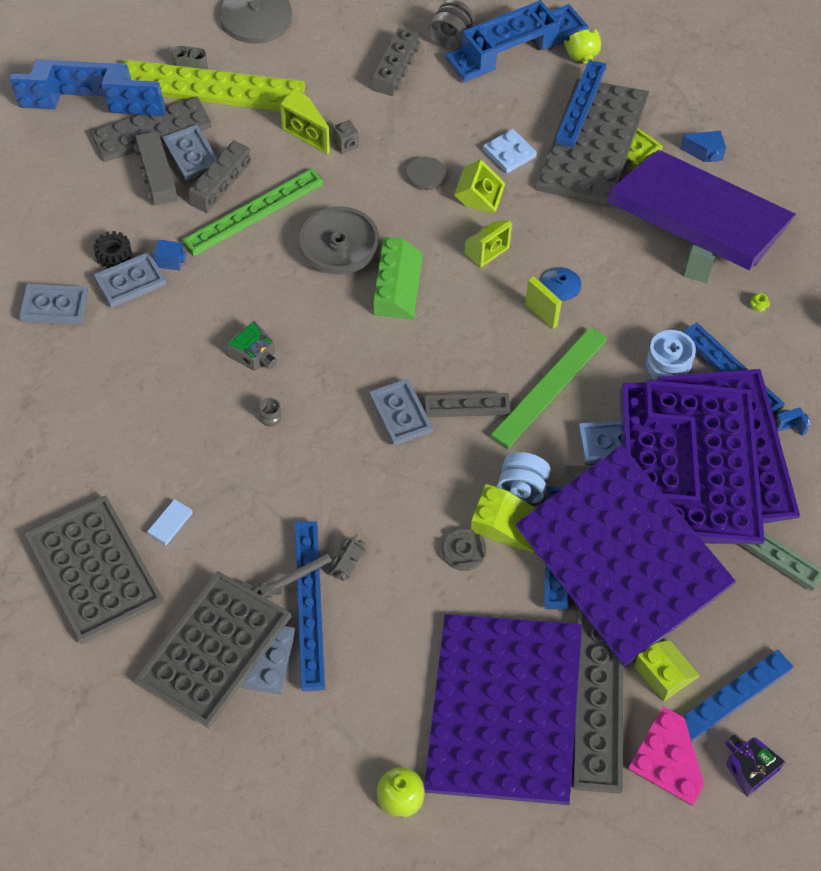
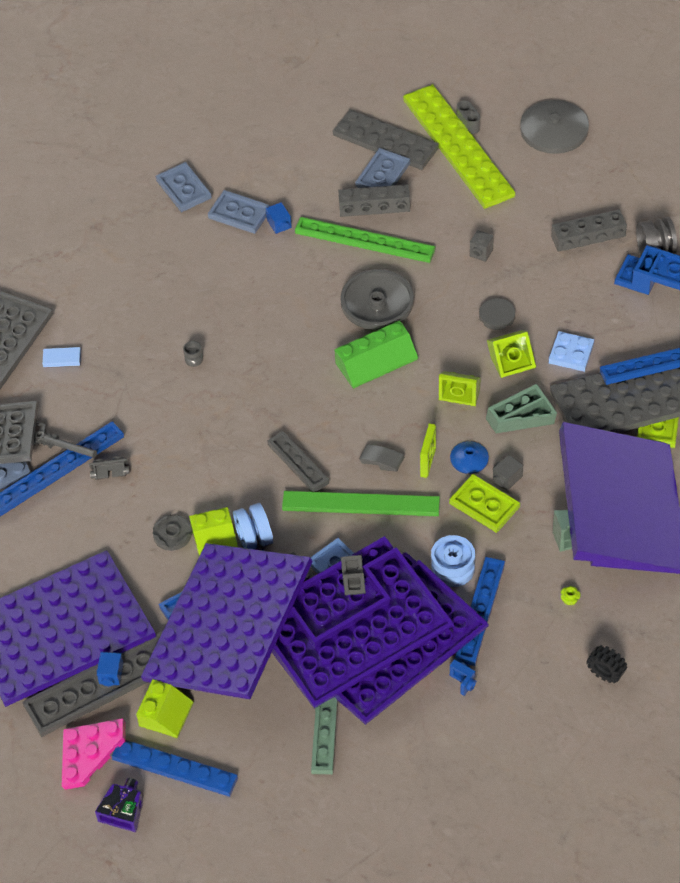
camera: 60 degrees right, 5 degrees down
(110, 80) = (390, 90): blue bracket -> none
(110, 241) = (256, 179): black tyre -> none
(156, 168) = (346, 162): dark grey brick -> none
(252, 348) = (240, 311): torso -> none
(304, 121) = (470, 211): lime slope -> none
(400, 412) = (257, 426): sand blue plate -> none
(513, 341) = (383, 457): none -> dark grey slope
(551, 215) = (521, 411): none -> sand green wedge
(599, 685) = (109, 668): none -> blue brick
(604, 266) = (507, 472): none -> dark grey brick
(622, 300) = (484, 503): none -> lime plate
(655, 431) = (353, 575): none -> dark grey slope

